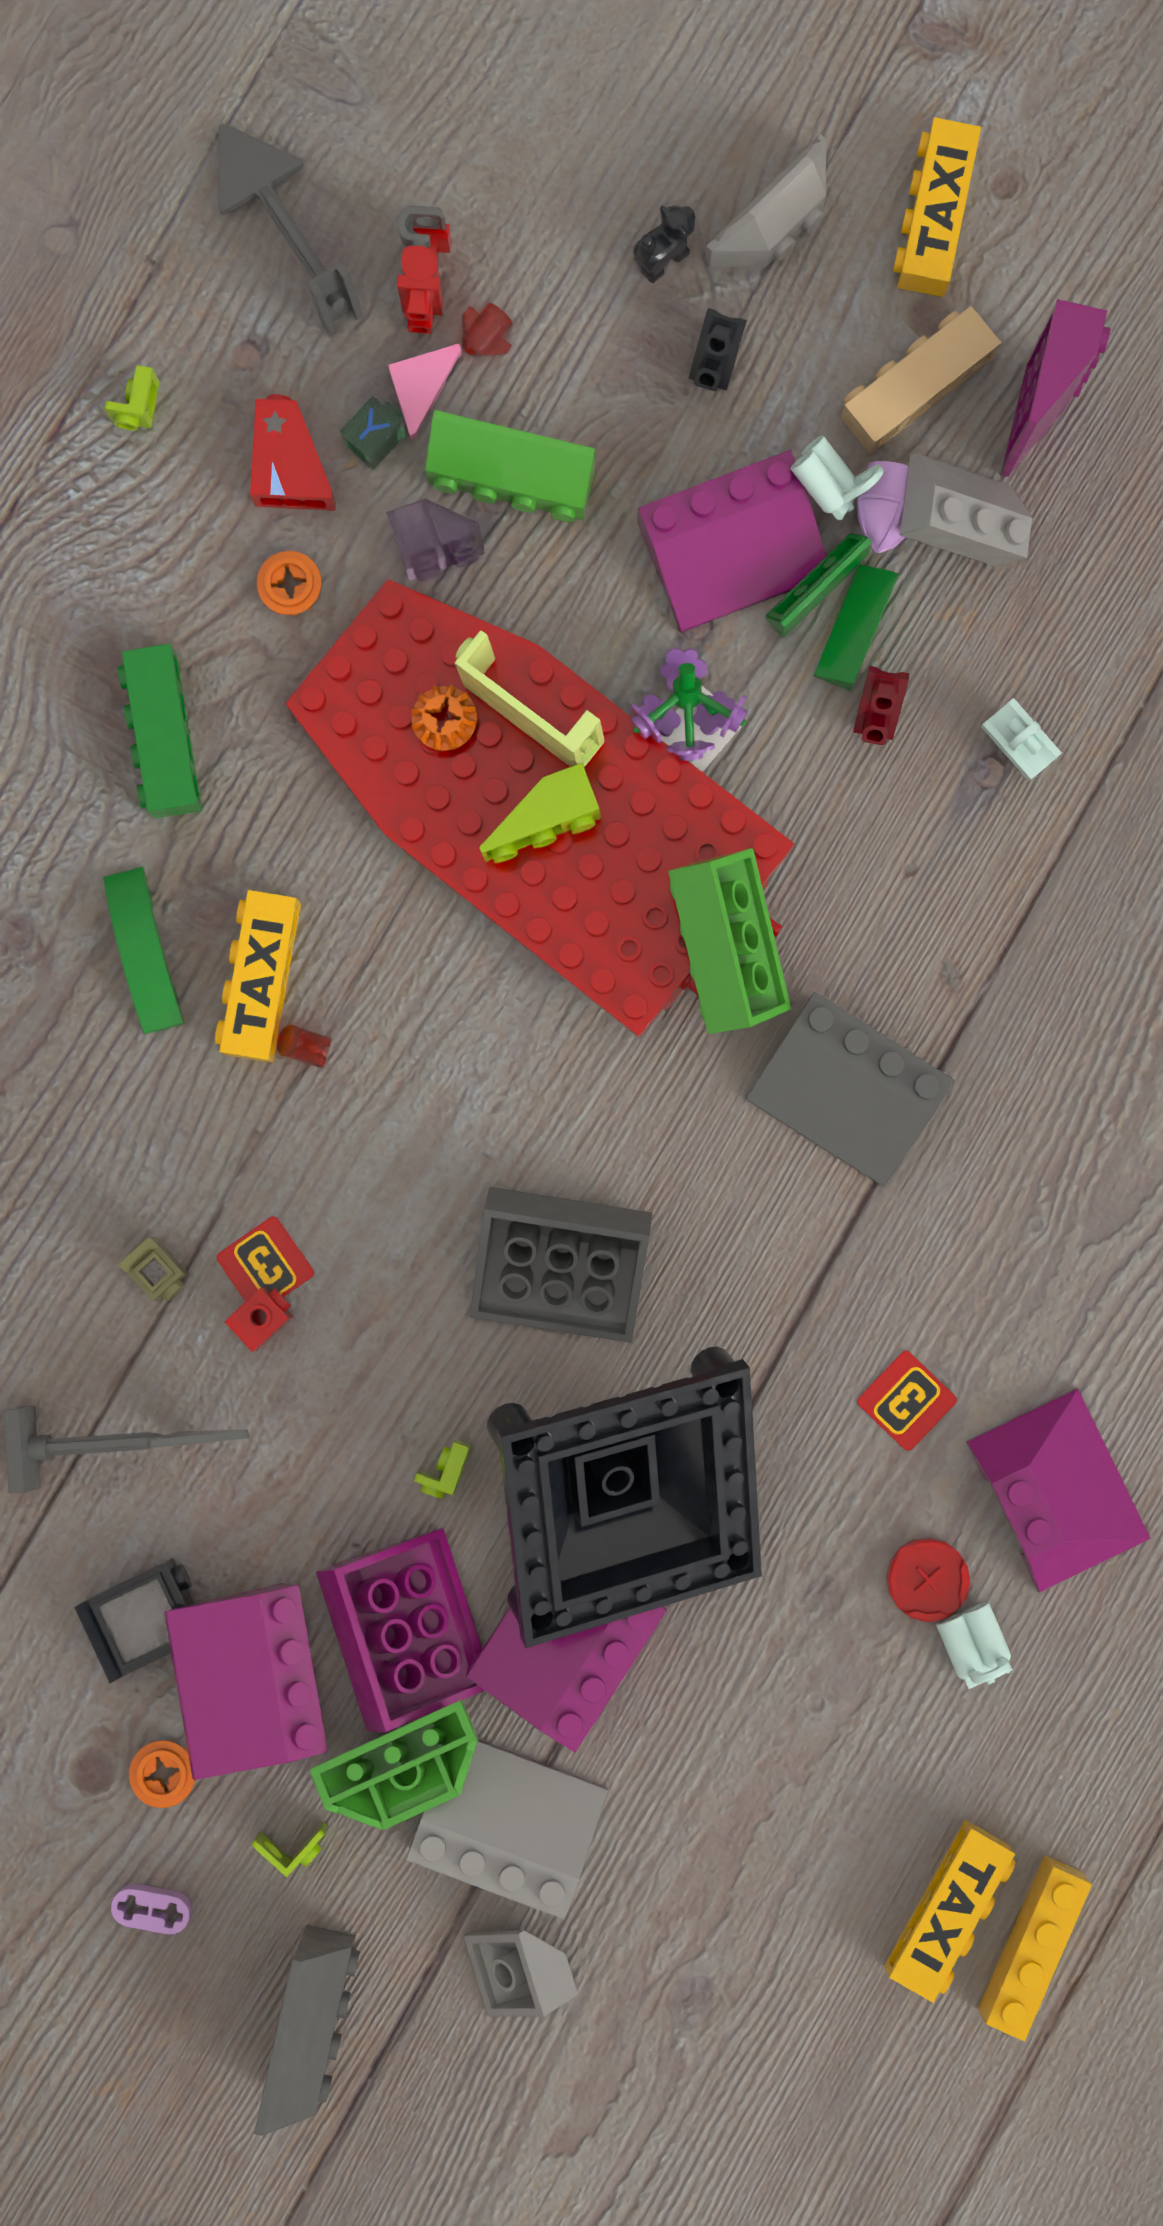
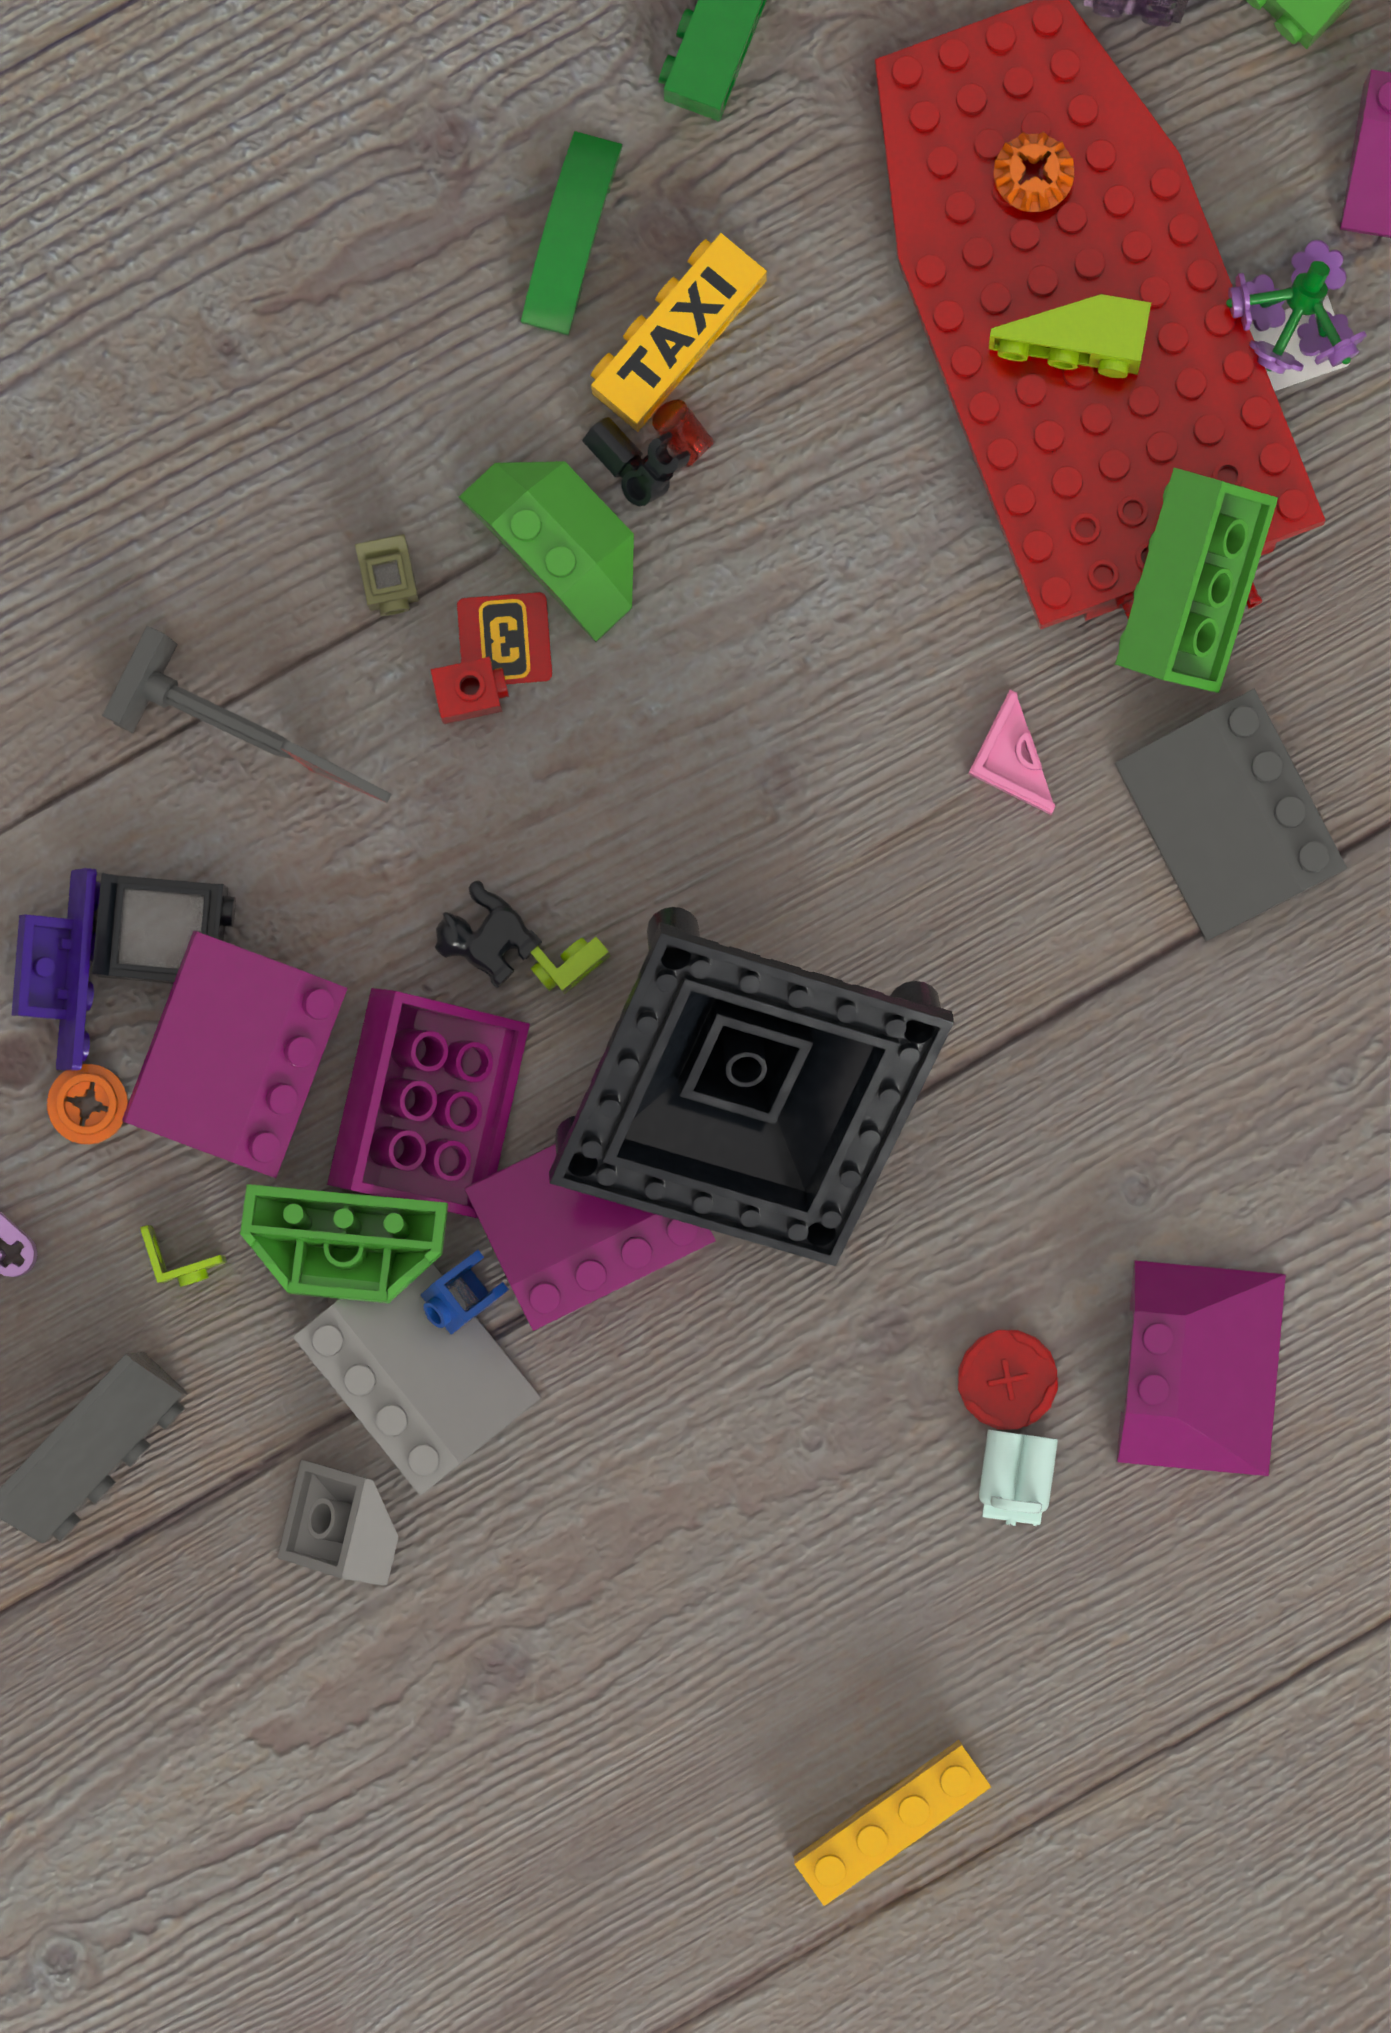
camera: 35 degrees right, 0 degrees up
(81, 1692) = (55, 966): none -> dark purple bracket
(262, 1170) = (560, 537): none -> bright green wedge
(294, 1095) = (641, 478): none -> black bar
(382, 1480) = (486, 946): none -> black animal
(508, 1755) = (459, 1296): none -> blue window
(560, 1264) = (815, 820): dark grey slope -> none
(577, 747) = (1154, 282): yellowish green panel -> none
(670, 1139) = (1011, 760): none -> bright pink tile
(907, 1400) = (1097, 1180): sticker -> none
(950, 1911) = (825, 1733): yellow brick -> none

